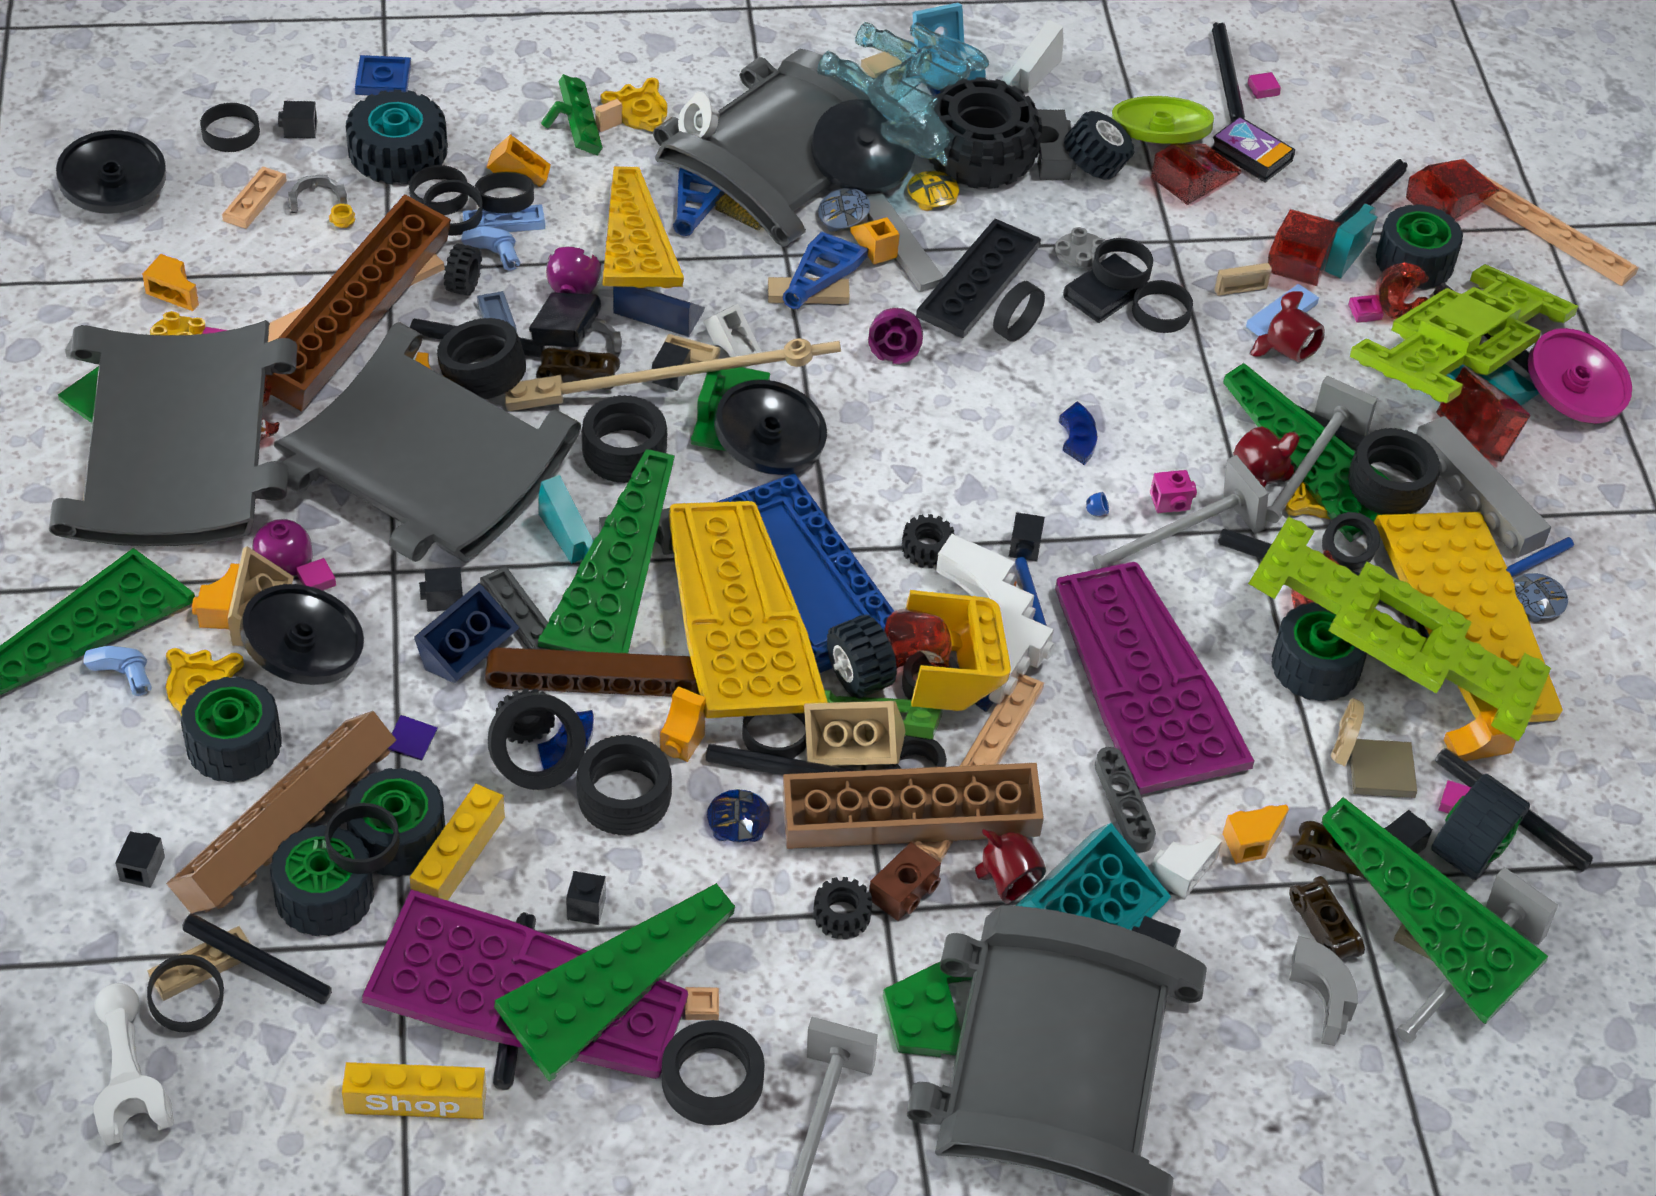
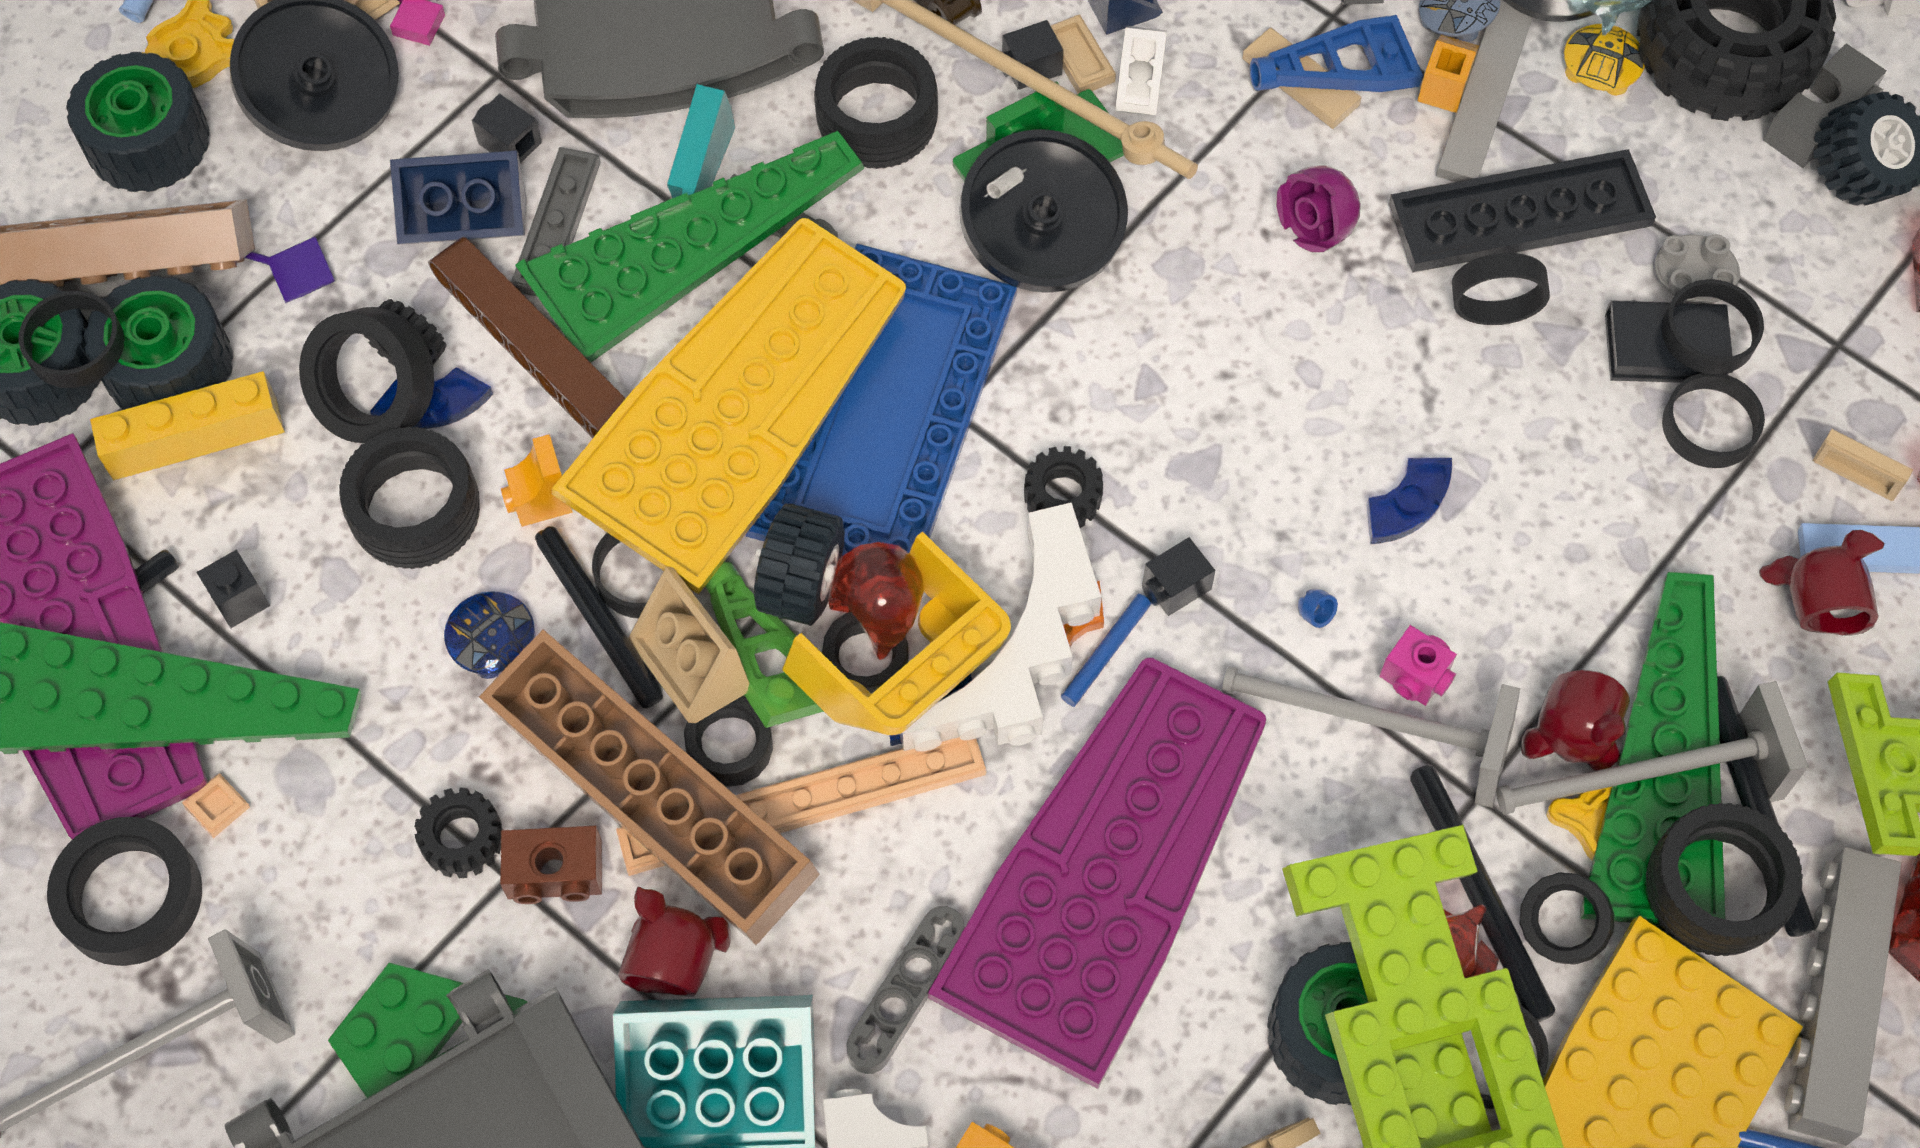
camera: 50 degrees right, 15 degrees up
(744, 422) = (1005, 182): none -> white piece

